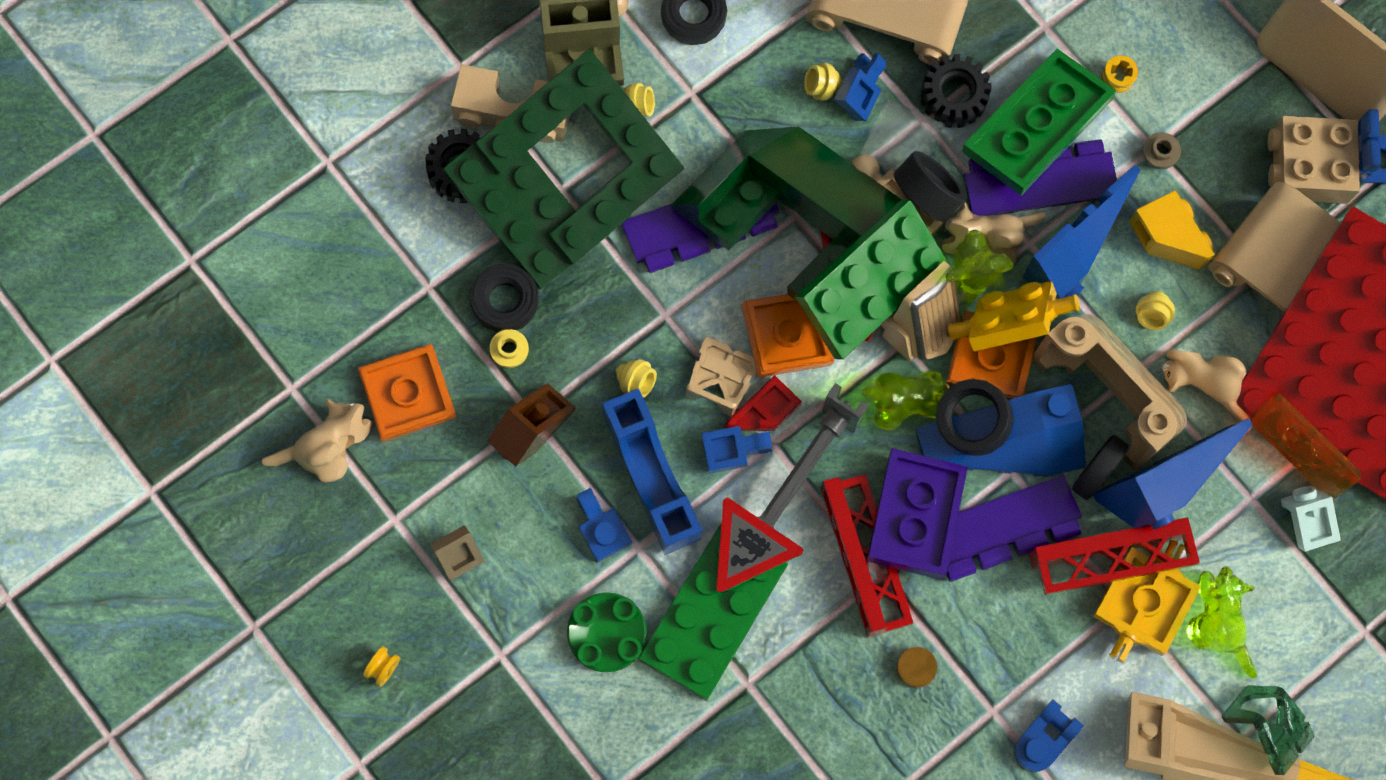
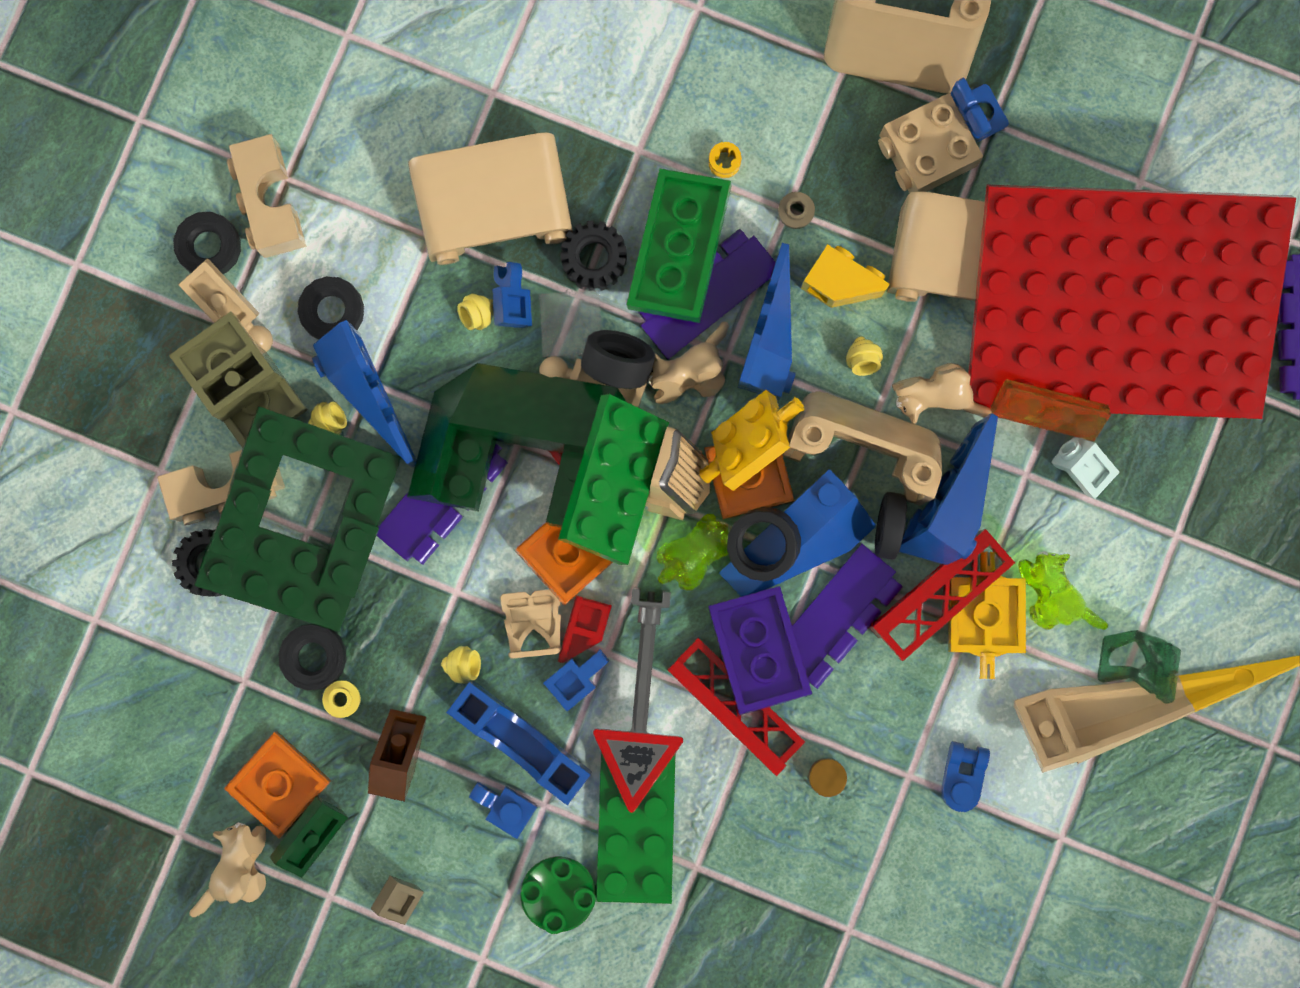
camera: 20 degrees left, 10 degrees up
(410, 452) = (308, 837): none -> dark green plate
(682, 76) = (350, 369): none -> blue wedge
(977, 266) = (695, 411): clear neon green animal -> none

